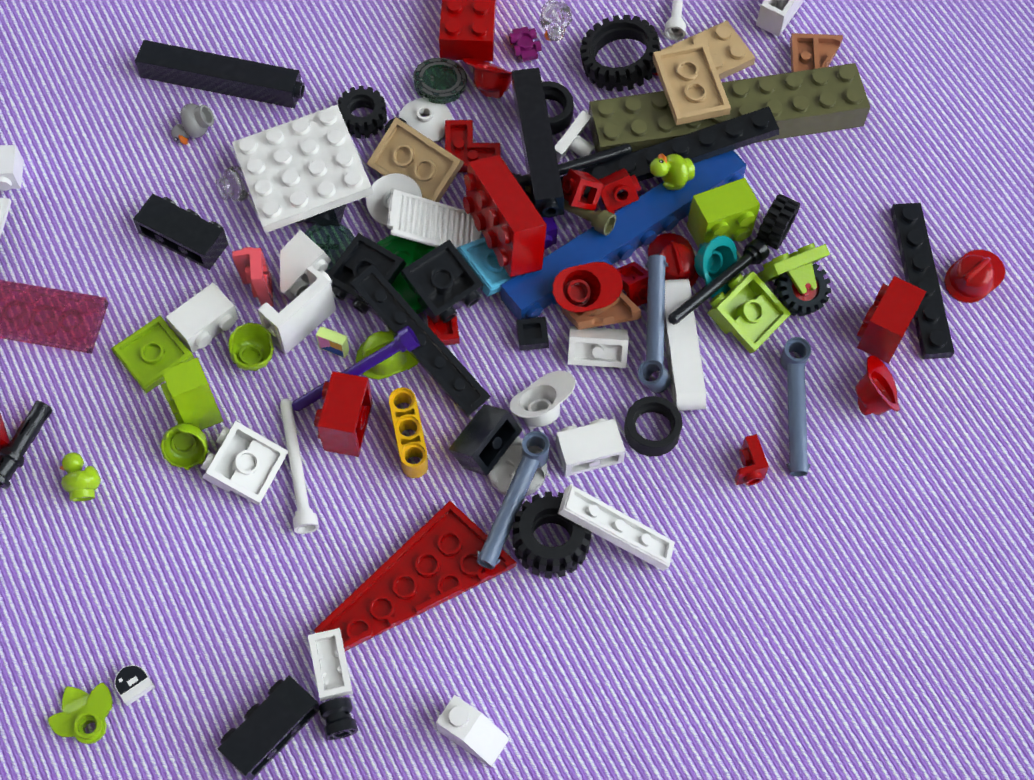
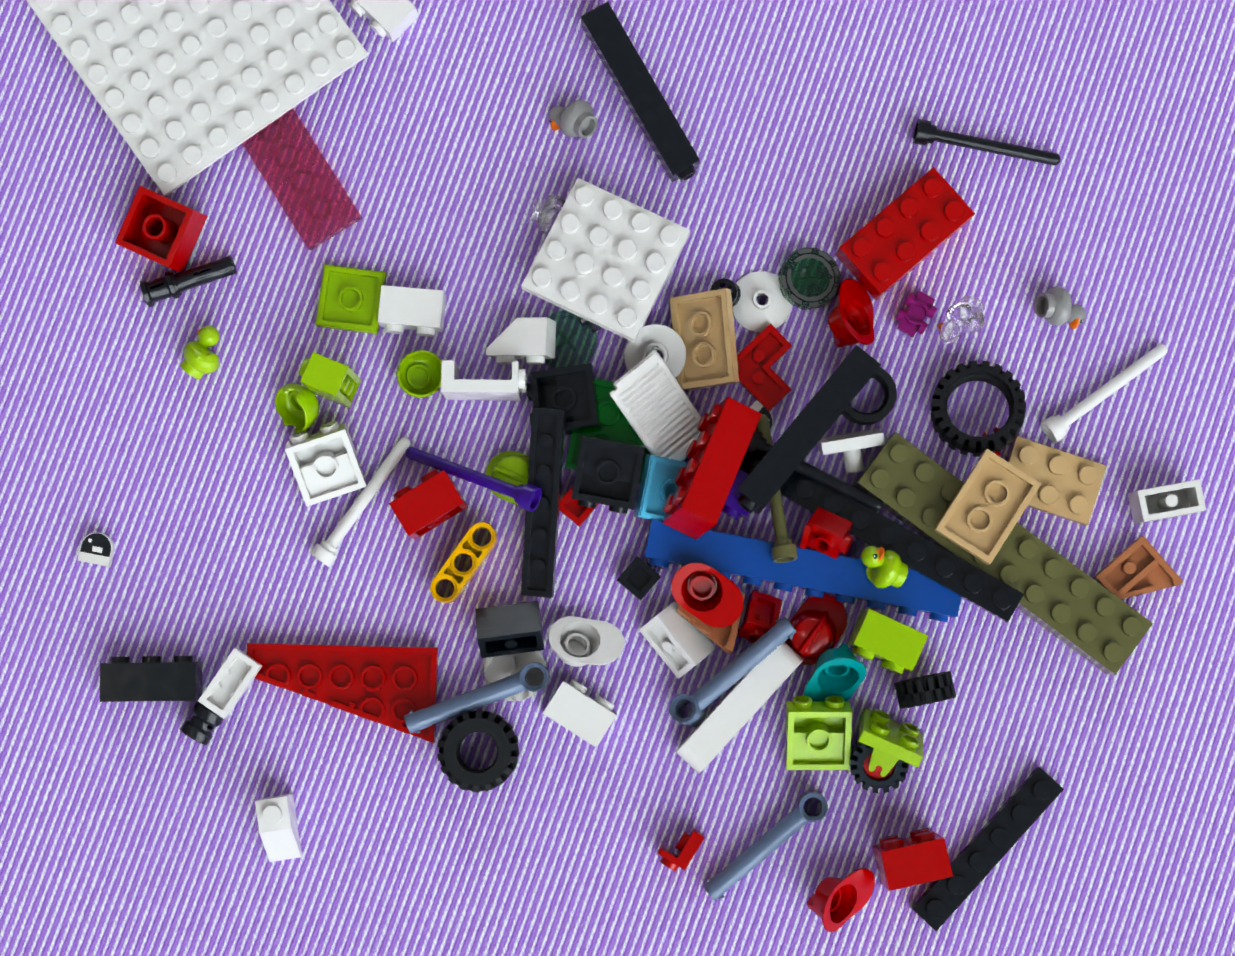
camera: 50 degrees right, 20 degrees up
(80, 710) = (46, 532): lime plate -> none
(181, 231) = (470, 213): black brick -> none
(255, 271) = (481, 322): coral bracket -> none
(332, 341) = (485, 429): yellowish green tile -> none
(367, 99) = (727, 229): black tyre -> none
(574, 187) = (794, 508): red brick -> none
(616, 527) = (524, 797): white tile -> none
(660, 406) = (647, 769): black tyre -> none
(753, 253) = (878, 693): black piece -> none
(974, 276) = (1034, 889): red piece -> none

